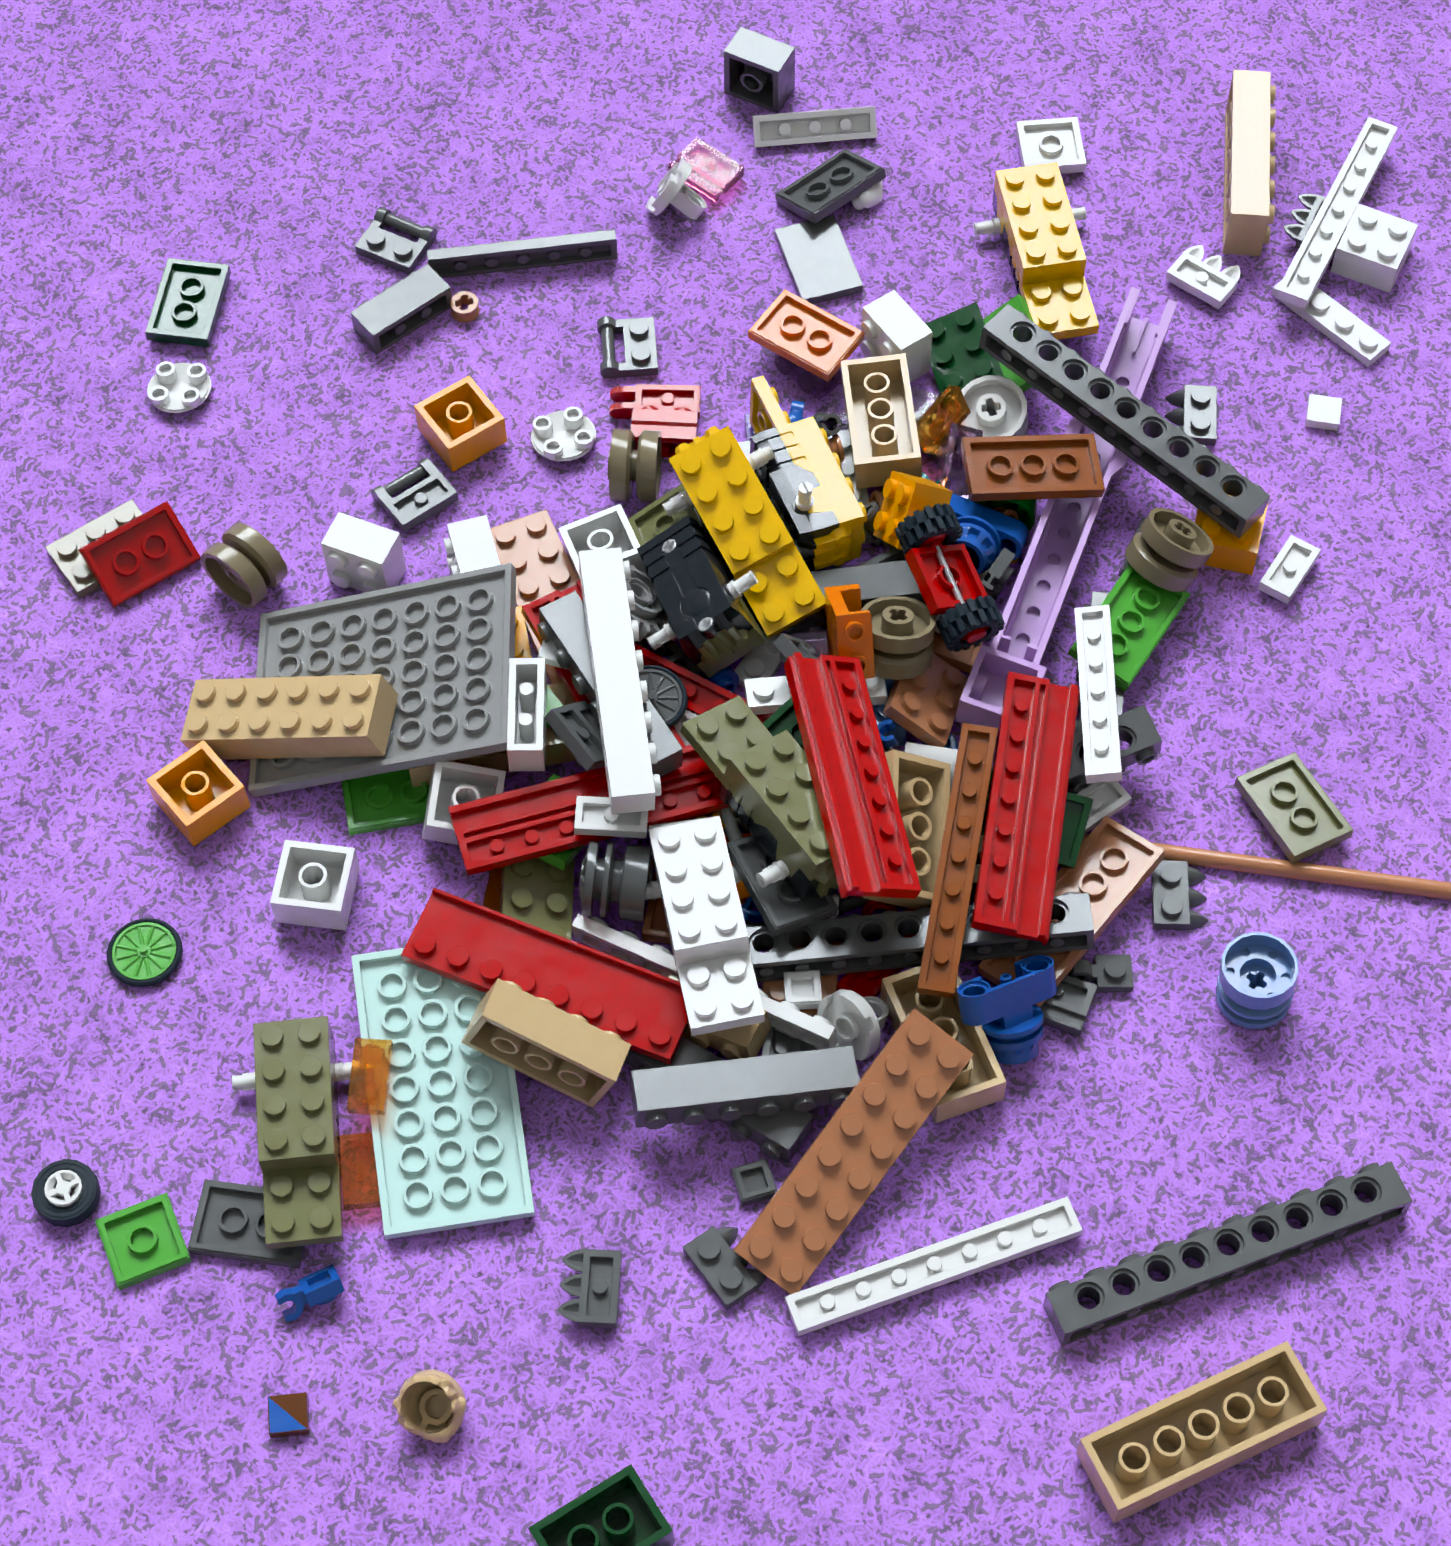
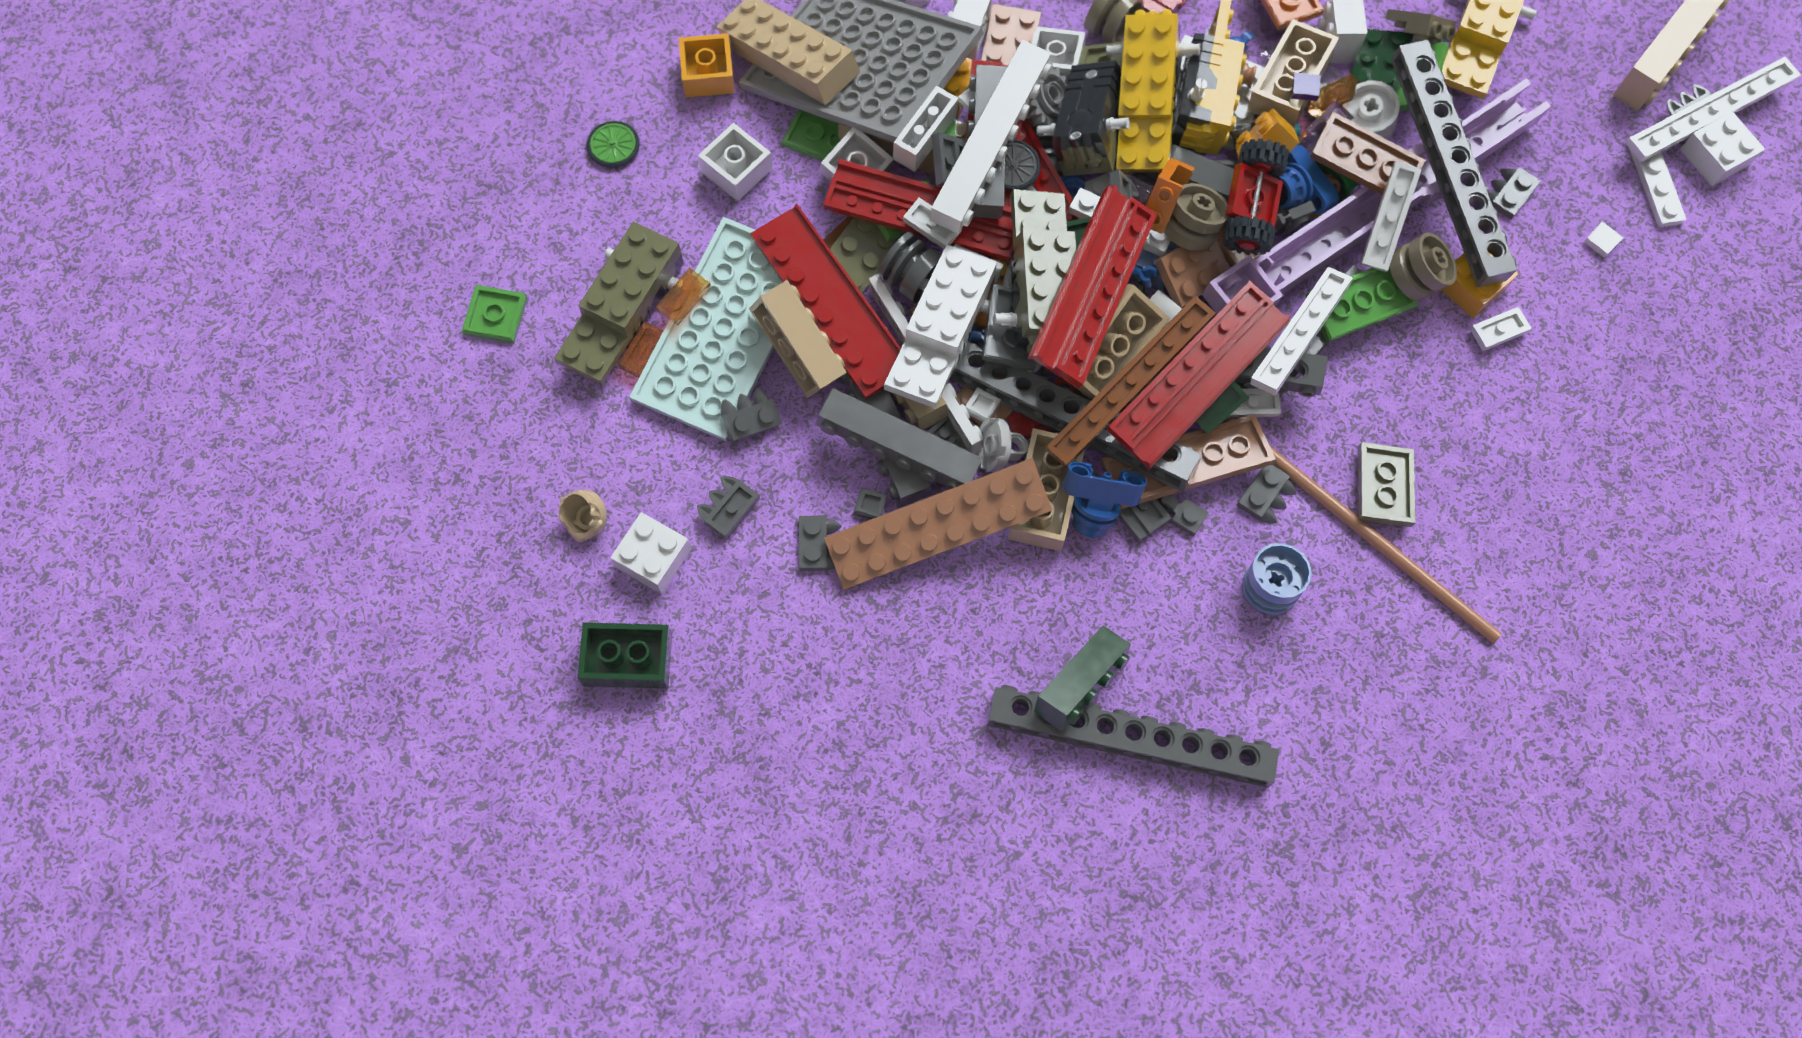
camera: 30 degrees right, 10 degrees up
(59, 1180) = (464, 250): black wheel -> none
(233, 1226) = (546, 335): dark grey tile -> none
(288, 1415) = (504, 467): reddish brown tile -> none
(313, 1289) = (568, 403): blue plate -> none
(543, 1399) = (651, 553): none -> white brick
(545, 1169) = (749, 417): none -> dark grey plate
(828, 422) = (1258, 55): dark grey pin -> none
(911, 426) = (1306, 86): none -> tile
(932, 1266) = (942, 625): white plate -> none
(984, 291) = (1423, 25): none -> dark tan plate
(1101, 515) = (1390, 216): none -> white plate
(1133, 1220) = (1082, 678): none -> brick
(1200, 1431) = (1031, 835): tan brick -> none
(1204, 277) = (1586, 104): white plate -> none

